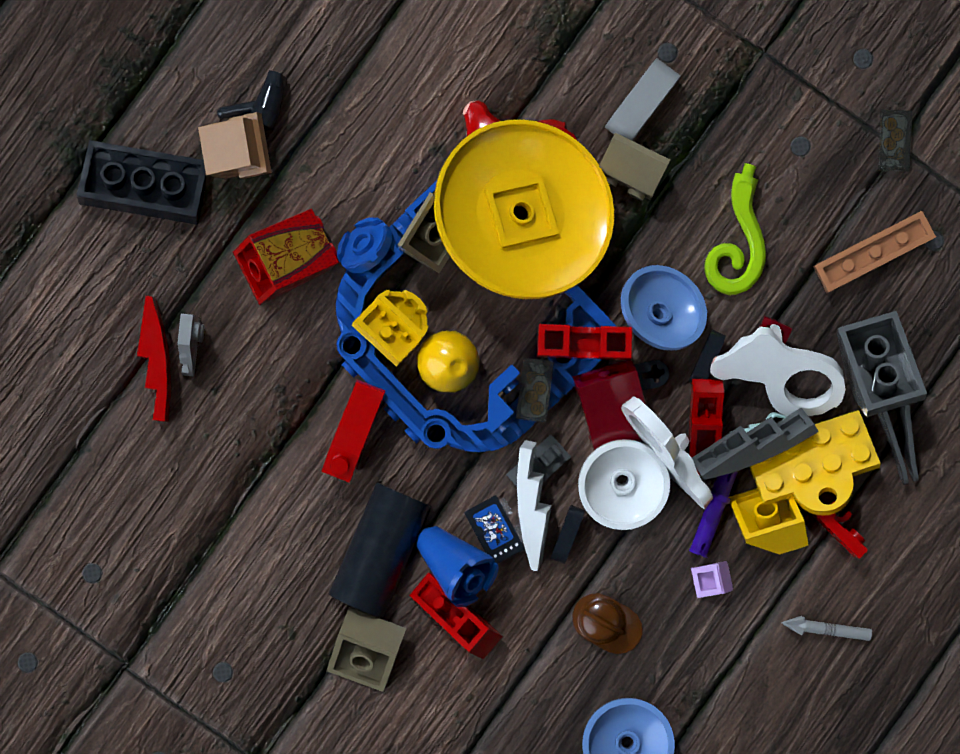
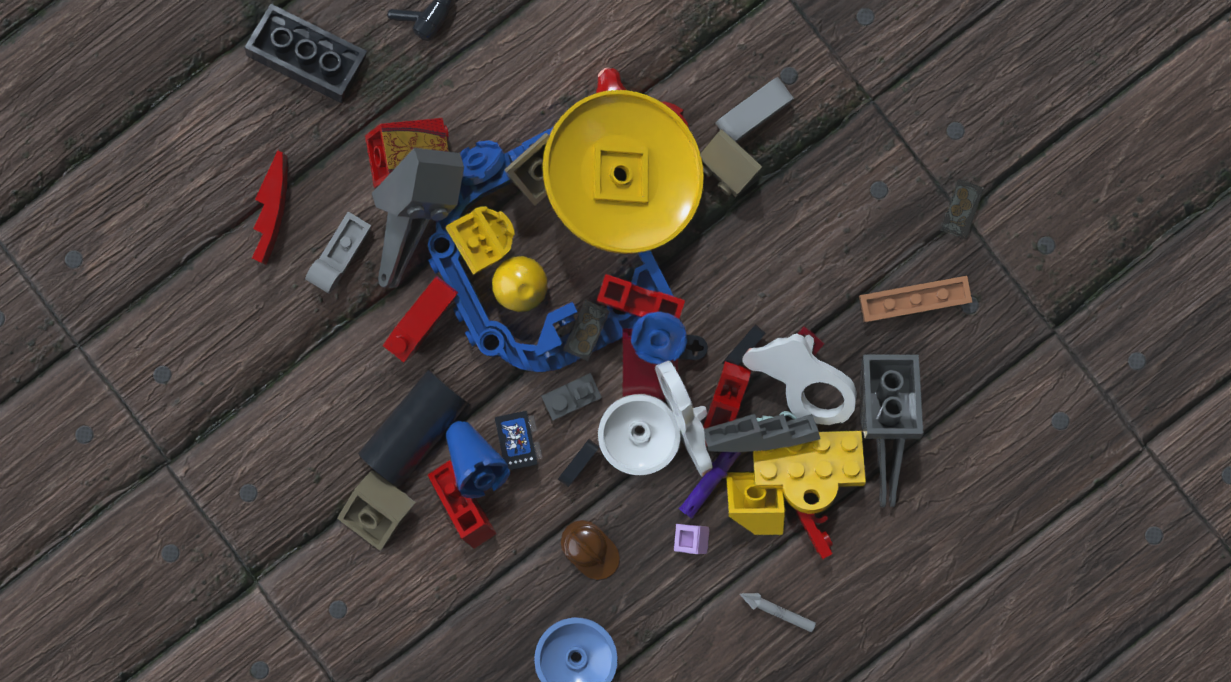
camera: 15 degrees right, 0 degrees up
(190, 333) = (304, 195): light grey wing -> none
(235, 147) = (392, 46): medium nougat plate -> none
(243, 386) = (339, 253): none -> light grey plate
(307, 298) = (417, 190): none -> dark grey slope
(532, 514) = (553, 436): white slope -> none
(616, 375) = (659, 337): none -> blue tile
(672, 299) = (728, 287): medium blue dish -> none
(742, 202) = (814, 222): lime plant -> none

